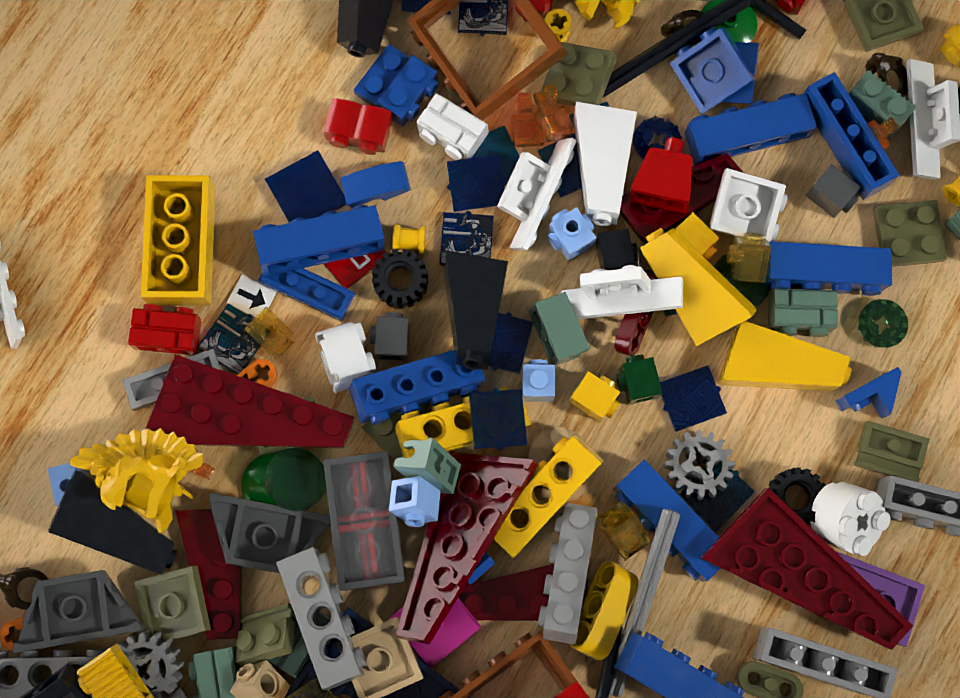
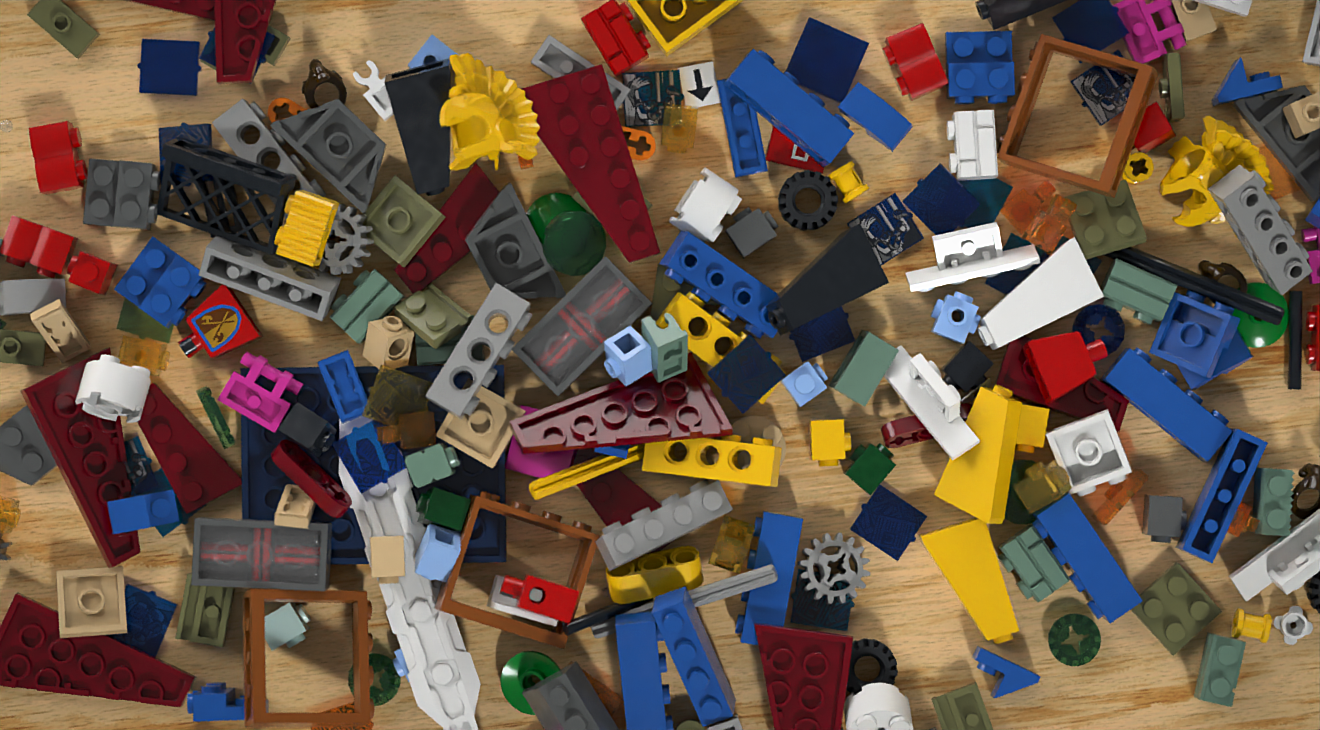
camera: 60 degrees right, 10 degrees up
(61, 548) = (377, 95): none -> white plate
(480, 606) = (583, 472): none -> yellow axle
(650, 89) = (1137, 291): none -> sand green brick
(693, 626) = (694, 656): none -> blue brick
(796, 212) = (1119, 495): none -> clear orange plate

